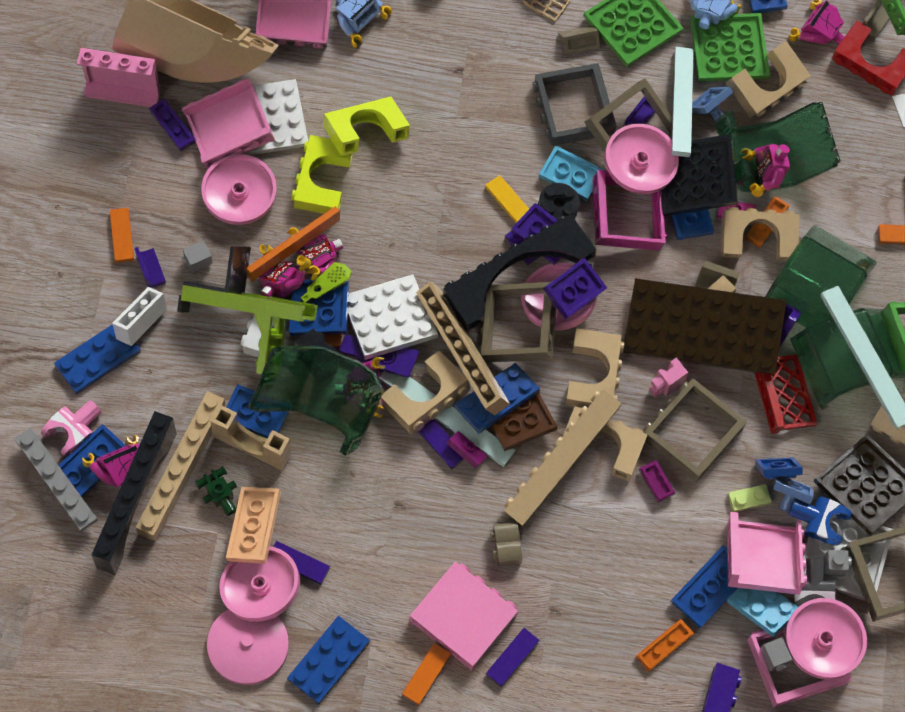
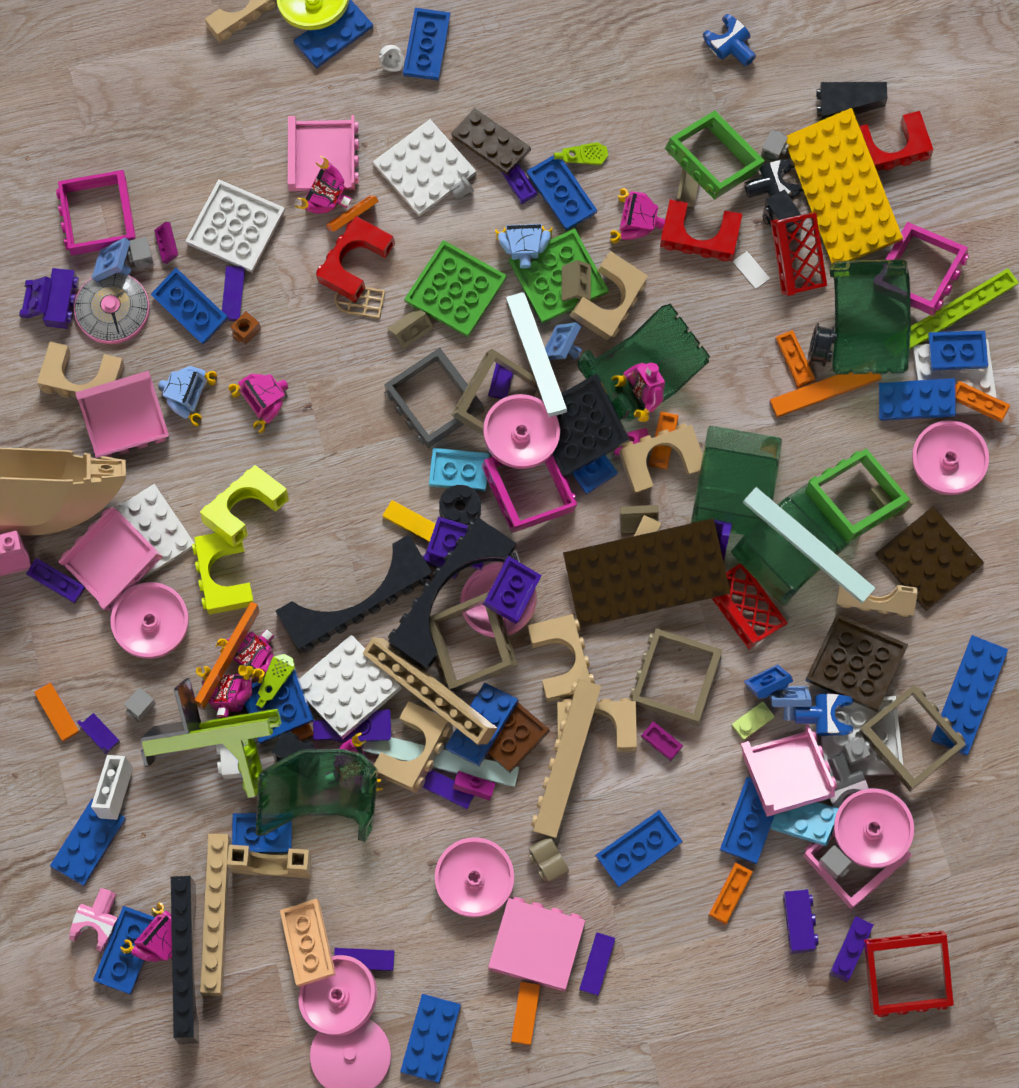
camera: 15 degrees left, 5 degrees up
(55, 479) = (104, 978): light grey plate -> none
(219, 490) = (261, 923): dark green piece -> none
(380, 253) = (311, 627): none -> black arch
(423, 42) = (262, 395): none -> dark pink torso
(431, 530) = (474, 877): none -> bright pink dish
(595, 568) = (638, 848): none -> blue plate
(669, 381) = (635, 640): bright pink hips -> none
(744, 54) = (576, 280): none -> dark tan panel

